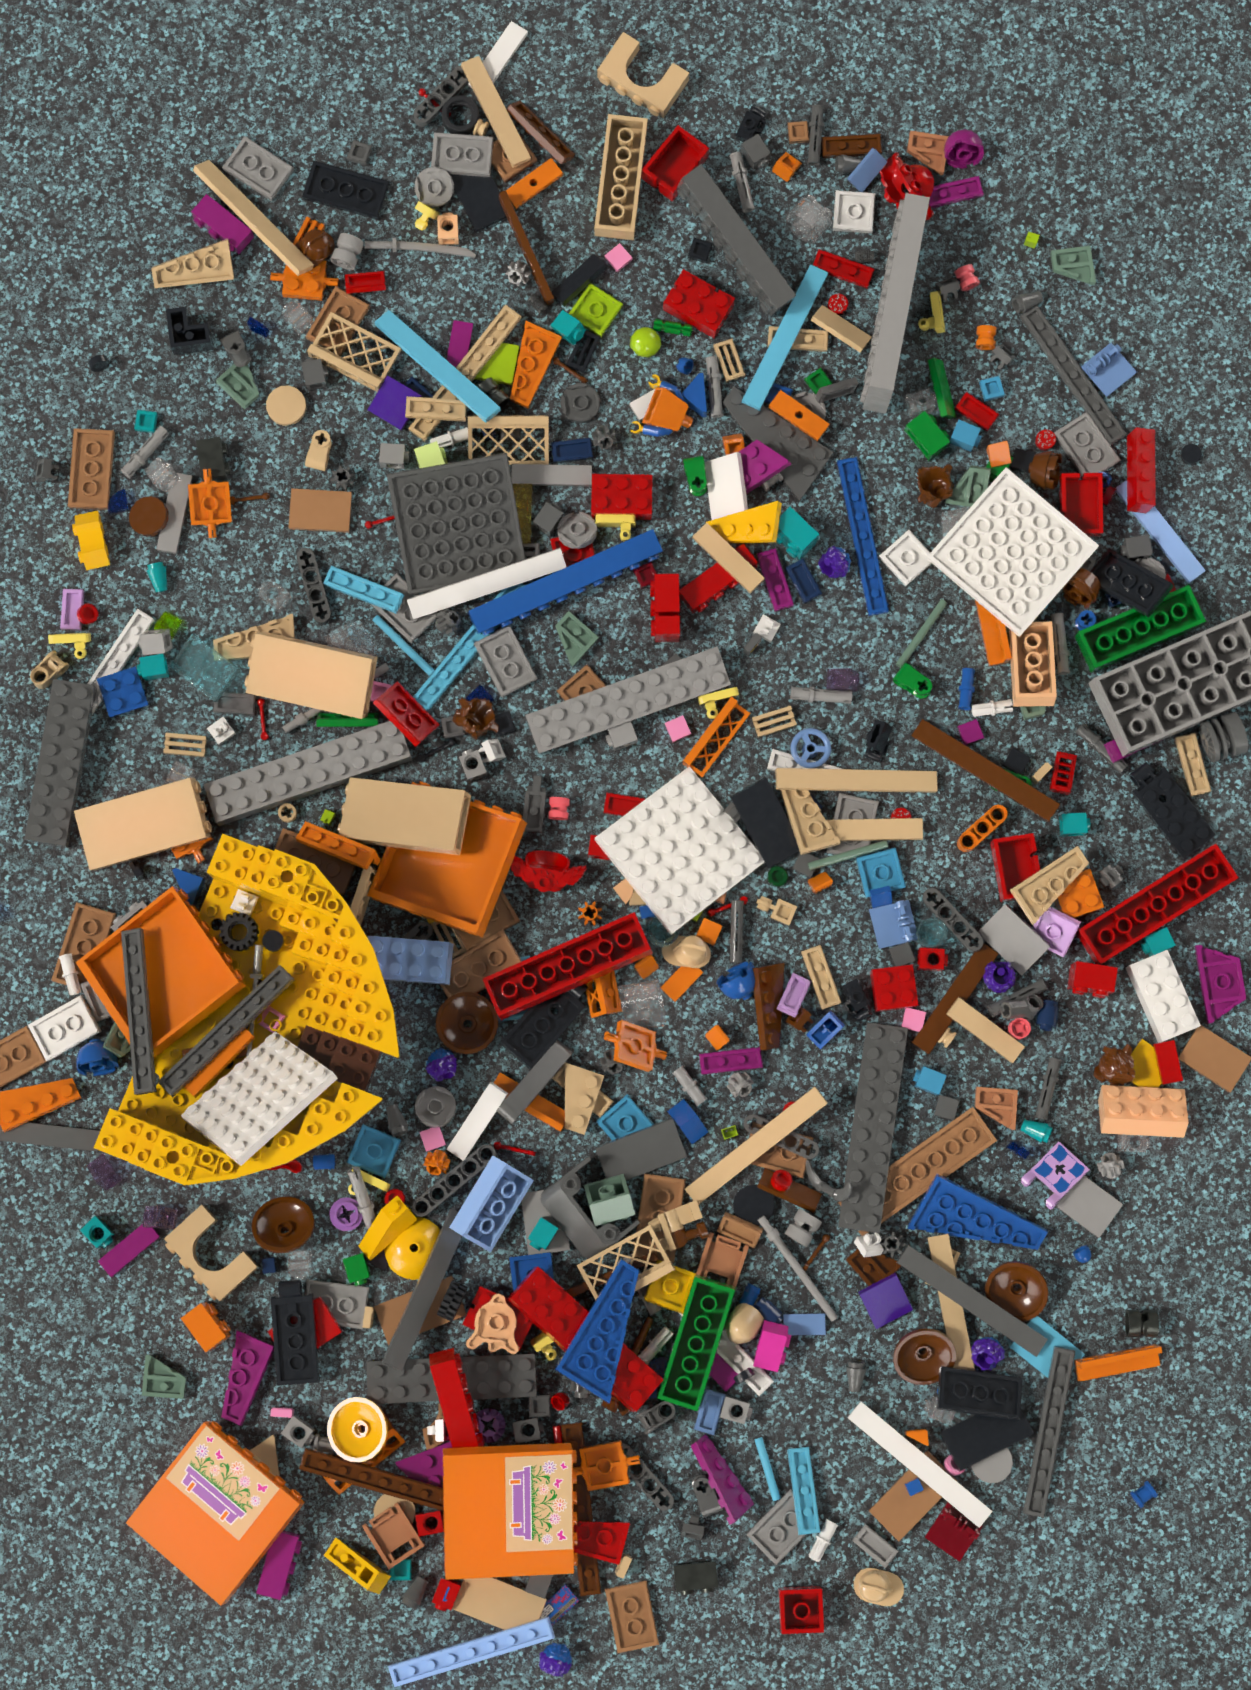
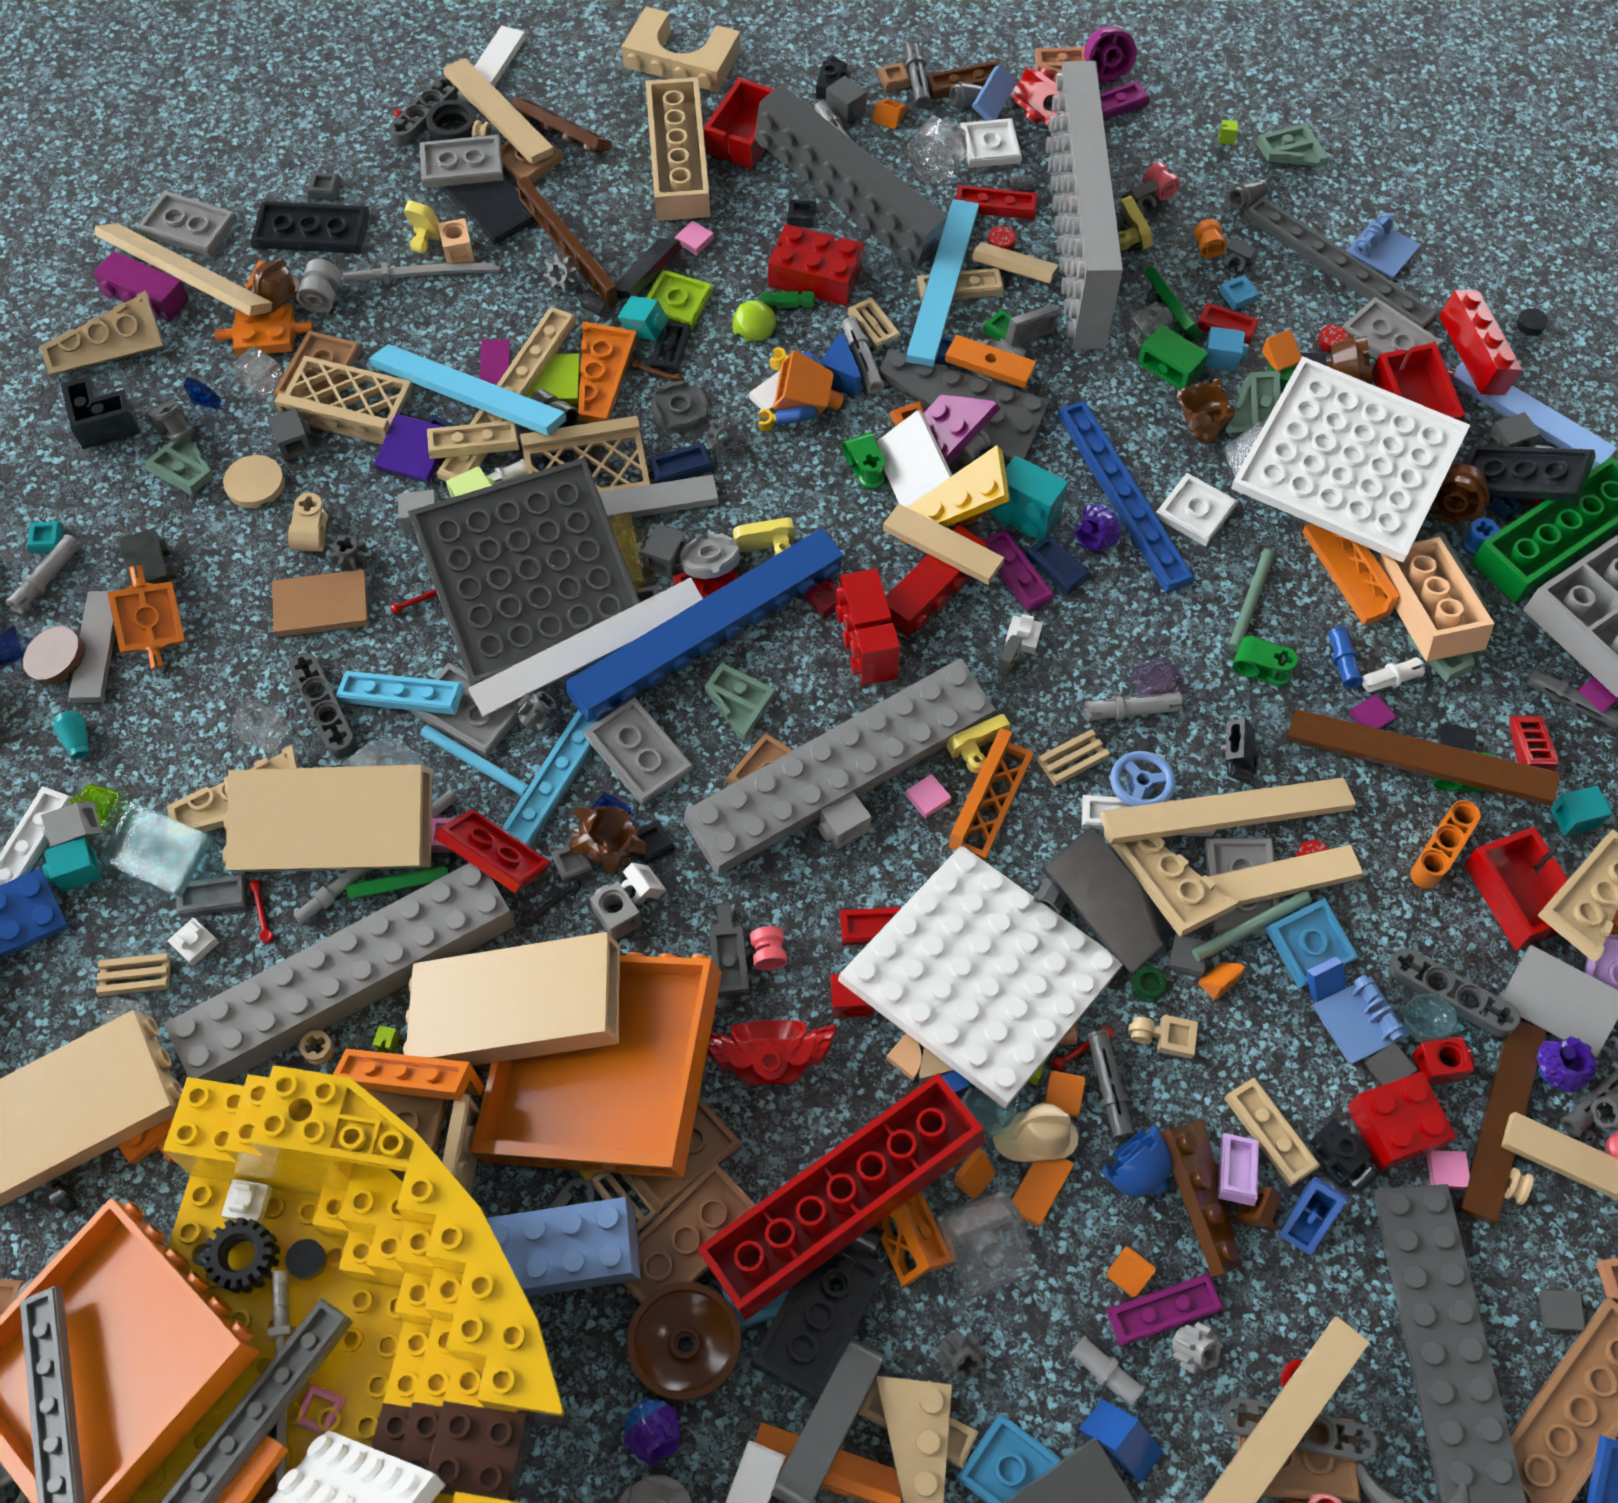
camera: 10 degrees left, 20 degrees down
(162, 474) = (70, 593): clear brick -> none
(190, 884) = (157, 1198): blue slope -> none
(233, 500) = (185, 614): reddish brown hinge -> none
(365, 282) = (350, 318): red tile -> none
(434, 186) = (432, 191): light grey tile -> none
(542, 176) = (566, 174): orange tile -> none
(584, 911) = (861, 1096): orange gear -> none
(622, 495) = (766, 496): red brick -> none
(635, 1045) = (993, 1316): orange plate -> none
(685, 365) = (815, 337): blue hinge -> none
(729, 1132) = (1202, 1443): lime piece -> none
(929, 1080) = (1518, 1267): dark azure brick -> none
(1041, 773) = (1505, 743): tan tile -> none

